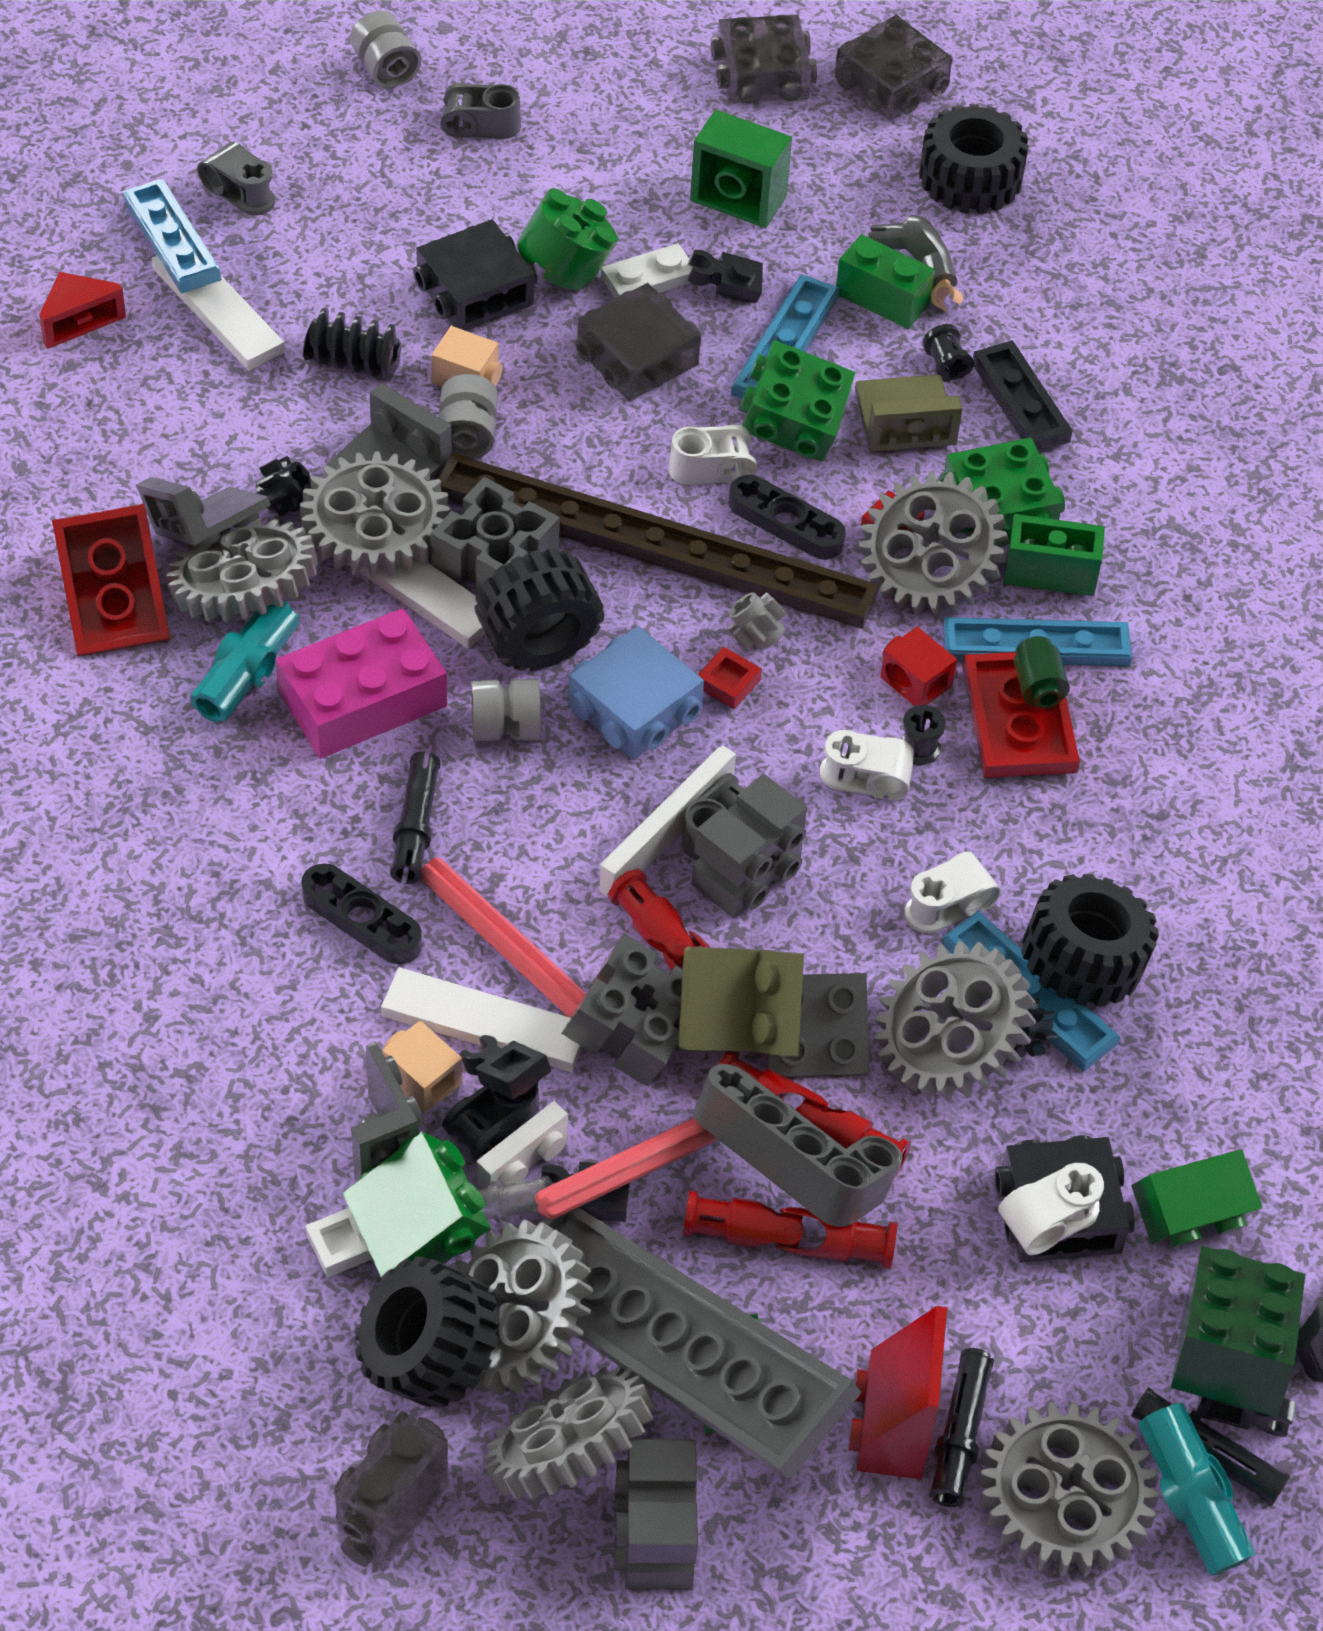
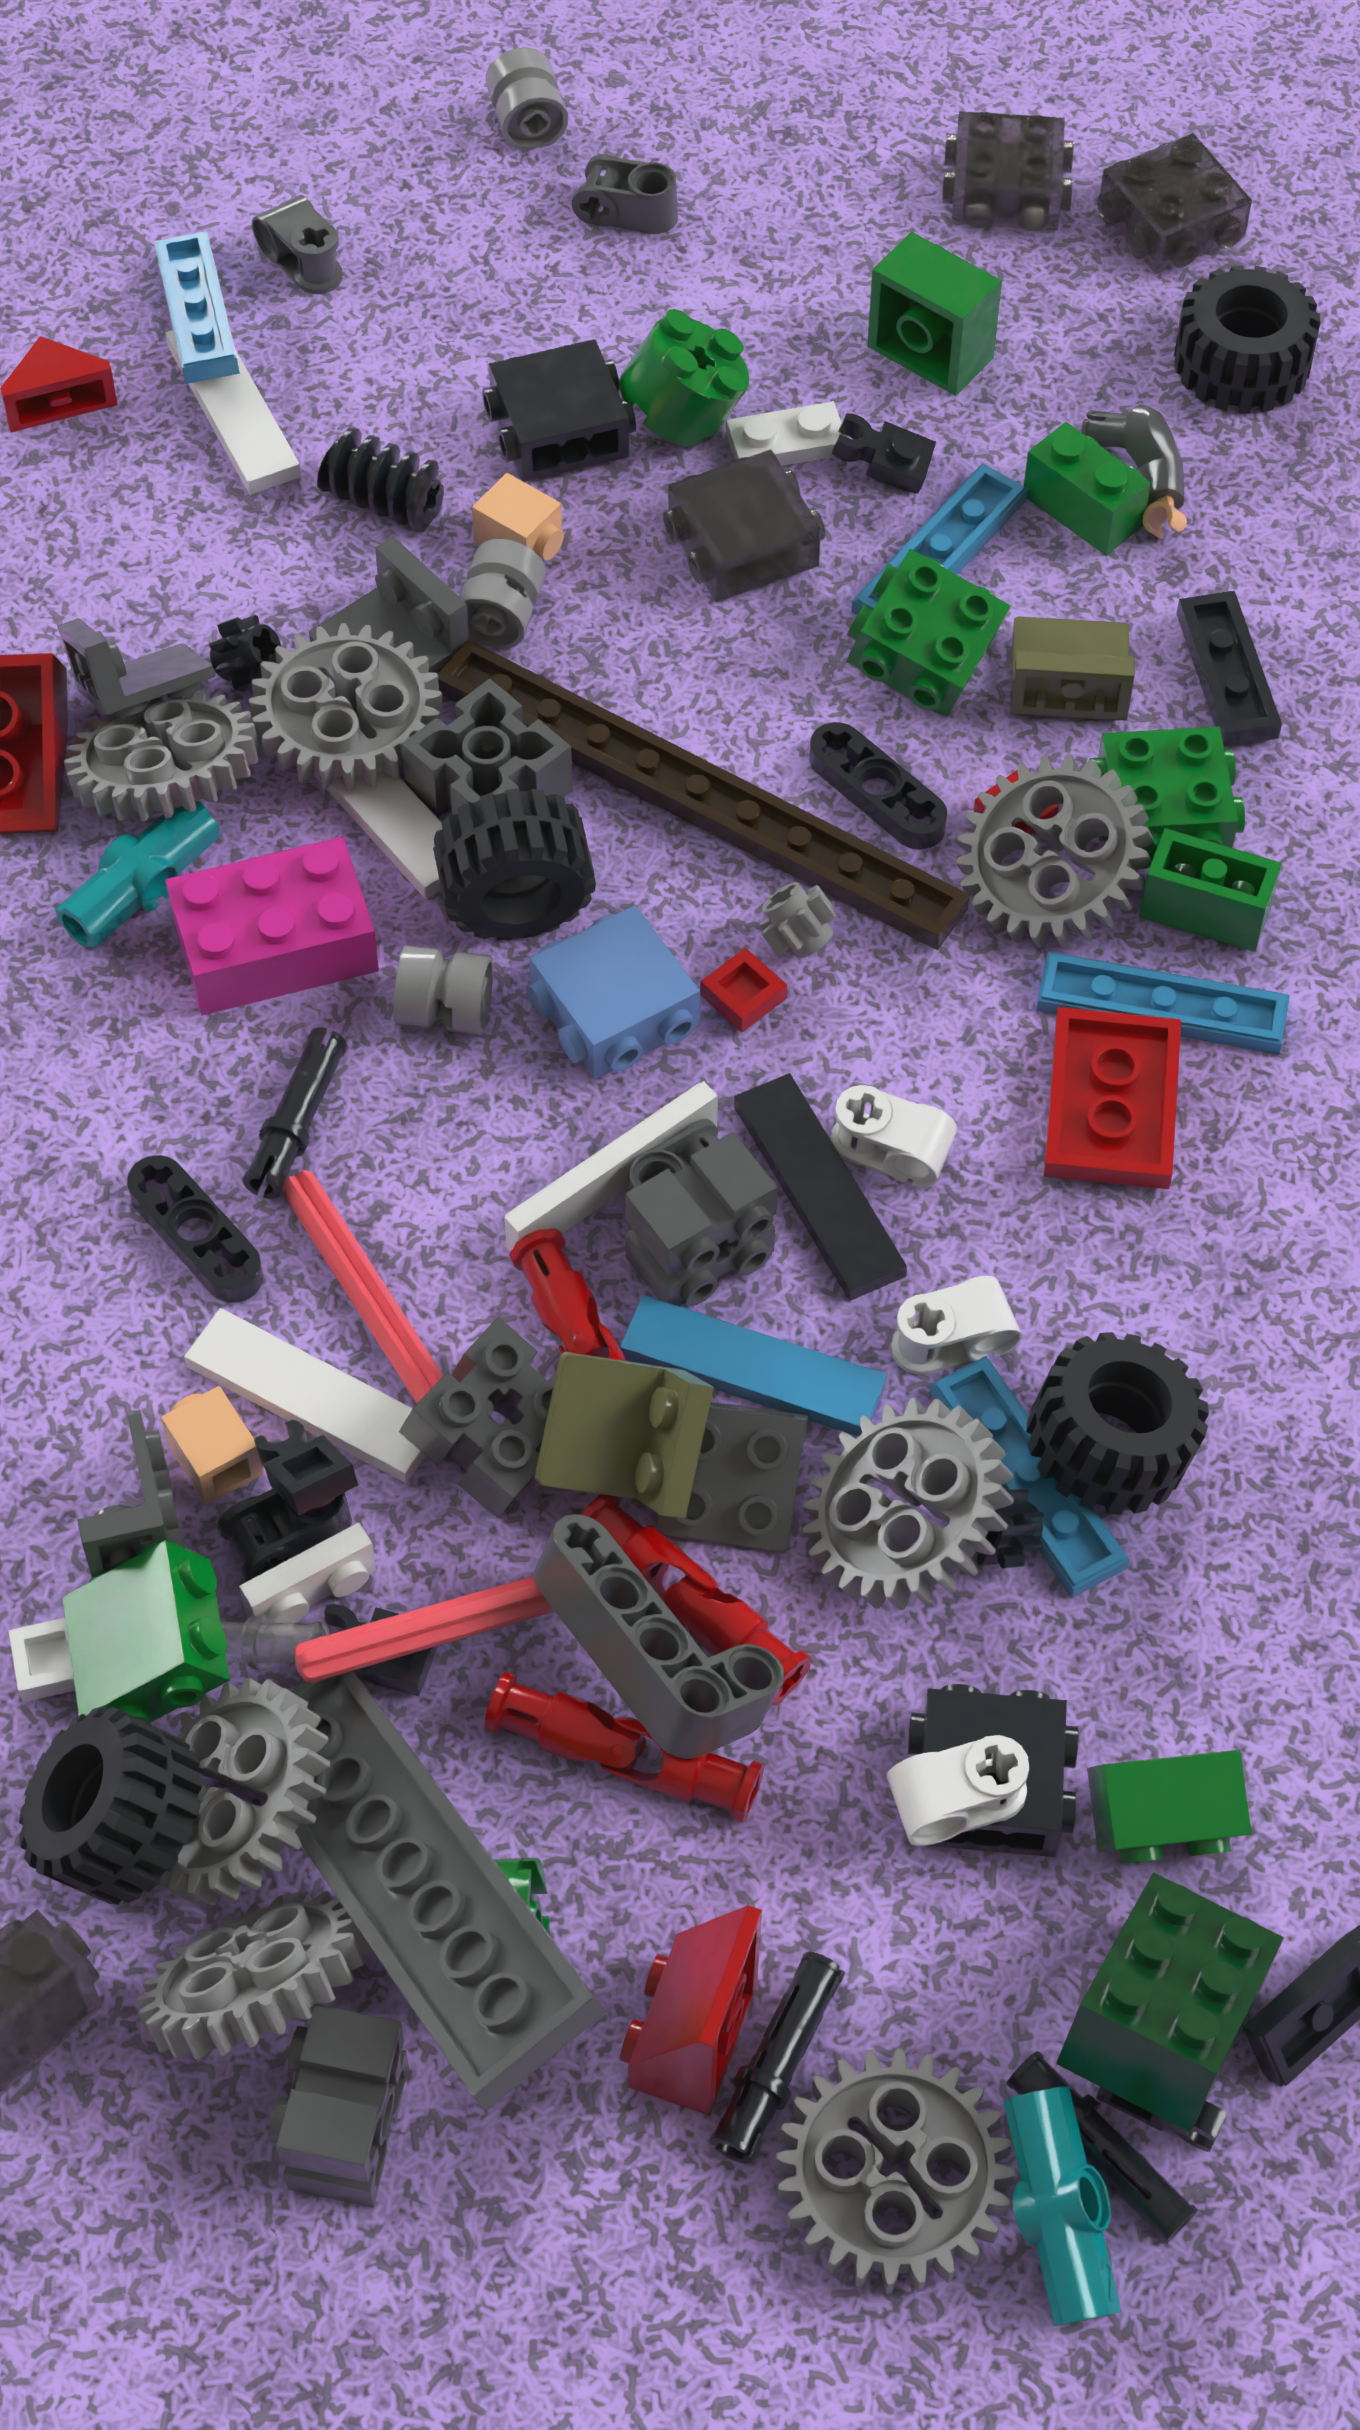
camera: 15 degrees right, 5 degrees up
(709, 454) = (795, 687): white piece -> none
(825, 945) = (754, 1365): none -> dark azure tile
(829, 814) = (820, 1187): none -> black tile
(914, 728) = (966, 1100): black bush -> none
(918, 667) = (992, 1015): red brick -> none
(947, 352) = (1145, 595): black bush -> none
(1041, 672) = (1146, 1048): dark green brick -> none

